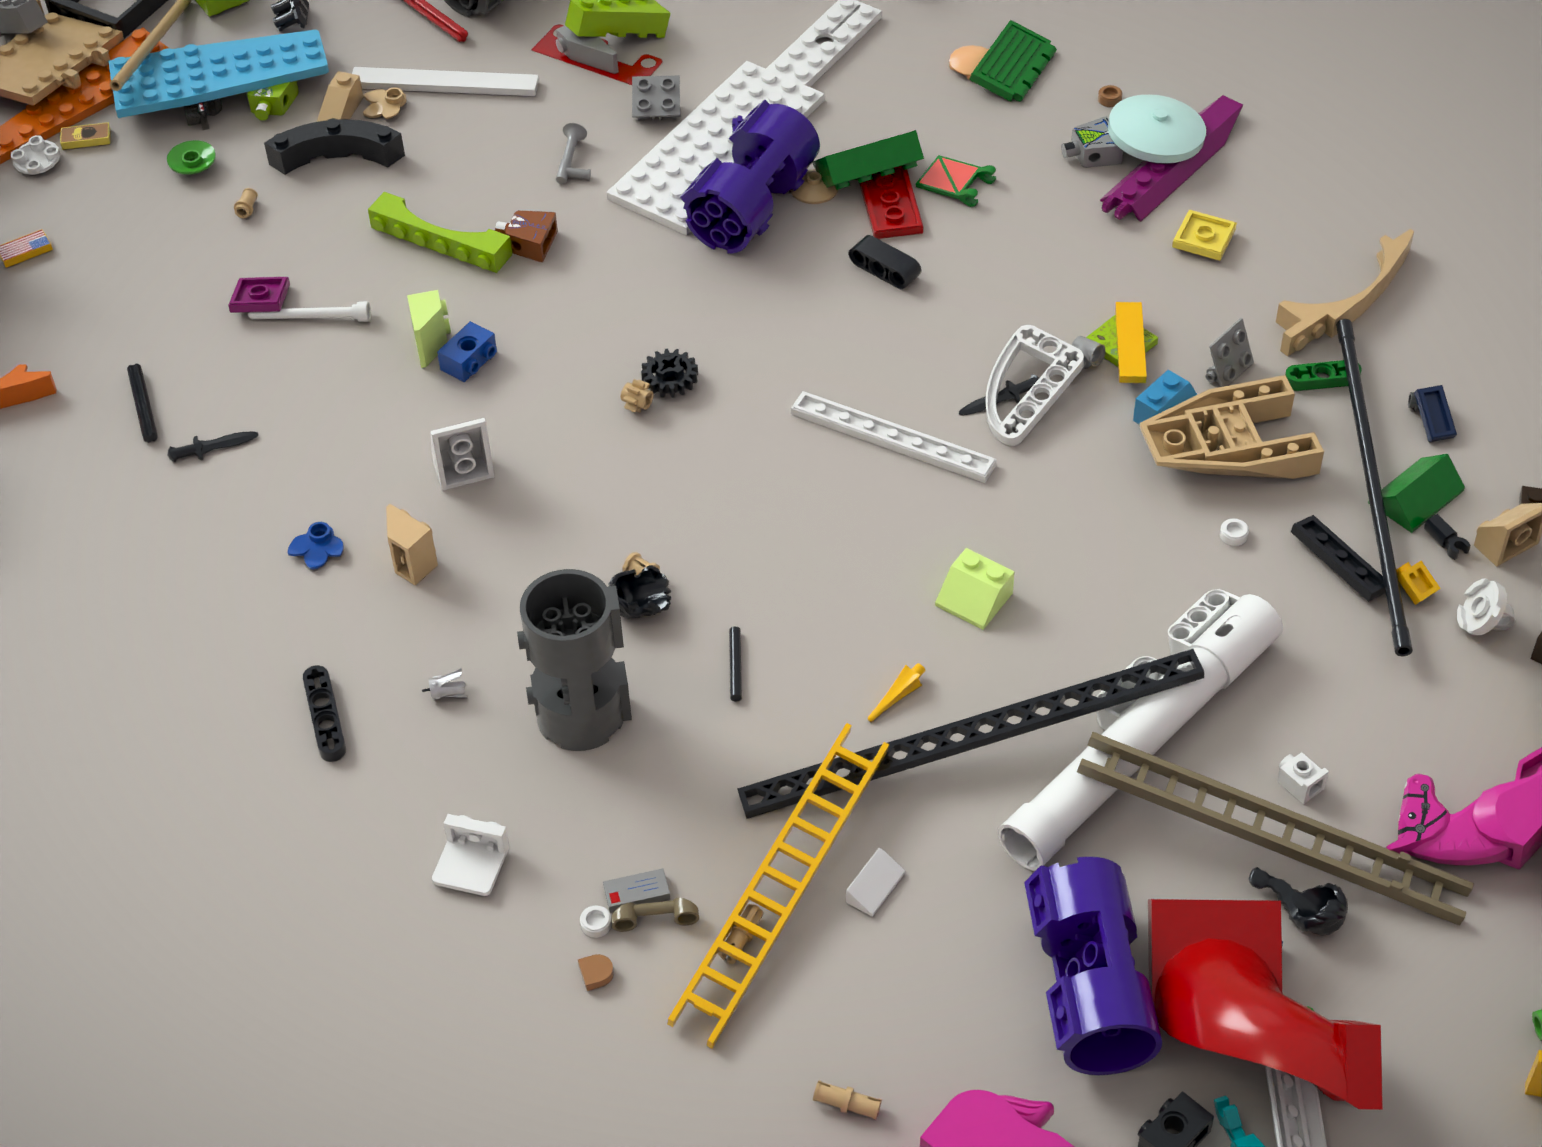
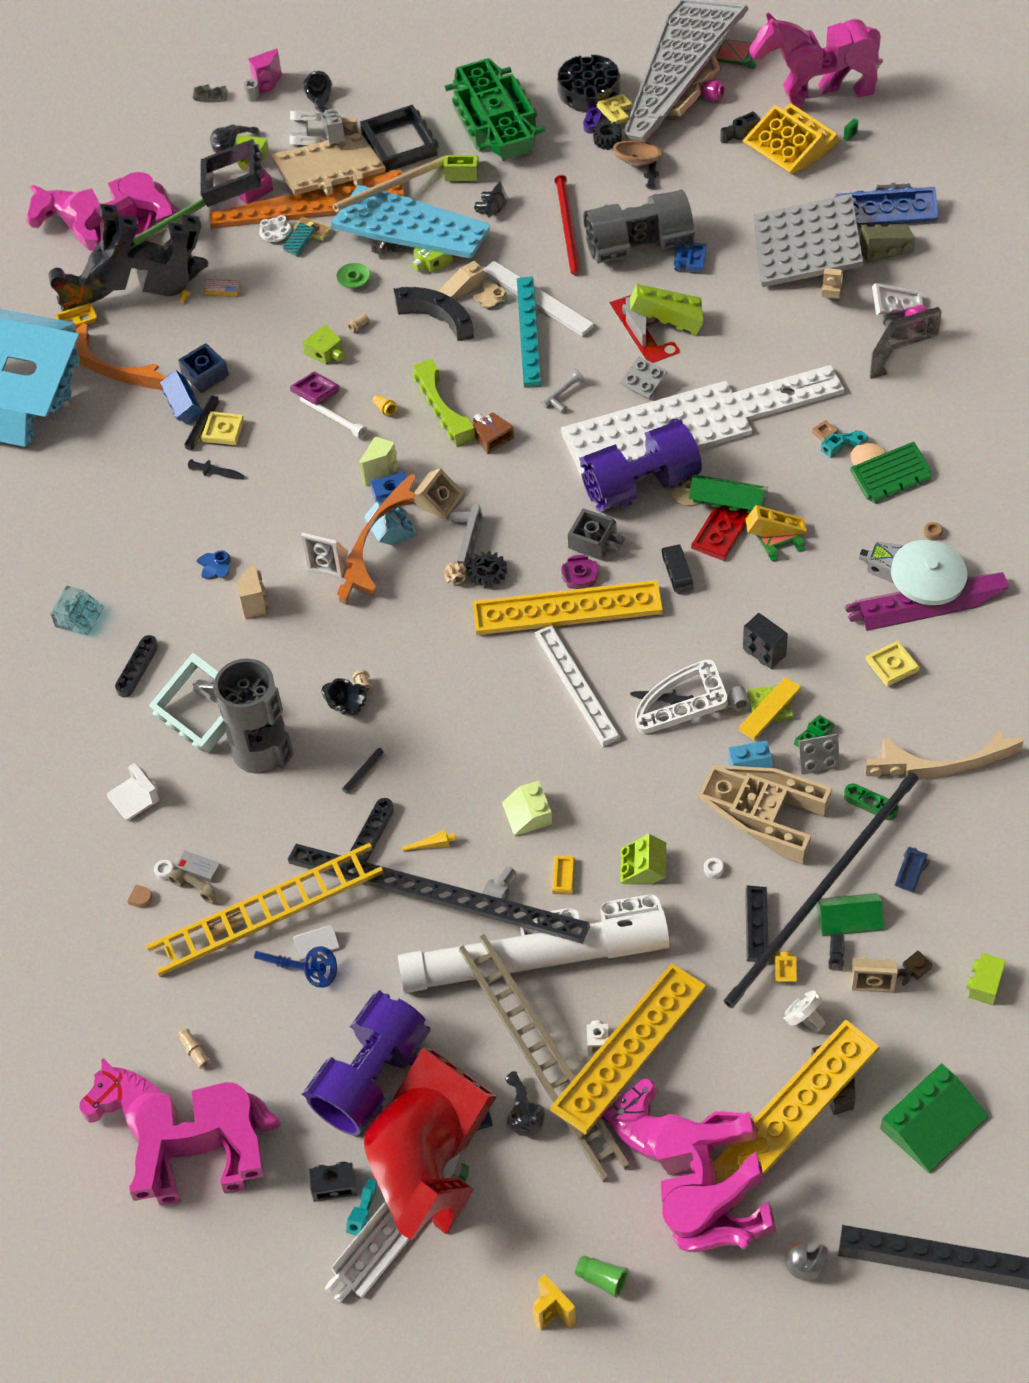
camera: 40 degrees right, 5 degrees up
(79, 152) = (298, 239): none -> teal tile
(90, 339) = (203, 367): none -> dark blue brick
(90, 386) = (181, 397): none -> brick
(179, 394) = (223, 428): none -> light yellow plate
(182, 693) = (76, 611): none -> clear light blue slope
(227, 245) = (323, 345): none -> lime torso
(369, 269) = (386, 406): none -> yellow cone
(463, 656) = (172, 687): none -> light aqua window
(470, 117) = (528, 332): none -> teal plate
(502, 385) = (392, 526): none -> medium azure slope
(521, 454) = (357, 576): none -> orange slope
(529, 327) = (438, 494): none -> tan slope
(600, 329) = (474, 522): none -> light grey piece
(762, 274) = (594, 534): none -> dark grey hinge
(778, 333) = (583, 580): none -> magenta plate
(800, 365) = (567, 607): none -> yellow plate
(812, 721) = (375, 832): none -> black beam
(901, 59) = (823, 430): none -> medium nougat tile
(906, 907) = (311, 968): none -> clear blue dish
(925, 61) = (834, 442): none -> teal piece
(945, 165) = (770, 523): none -> yellow slope
(1027, 684) = (499, 886): none -> light grey axle
(1060, 277) = (765, 640): none -> black brick
(1082, 635) = (563, 875): none -> yellow tile
(1157, 567) = (643, 861): none -> lime slope
(1196, 343) = (816, 728): none -> green slope
(1356, 763) = (627, 1048): none -> yellow plate

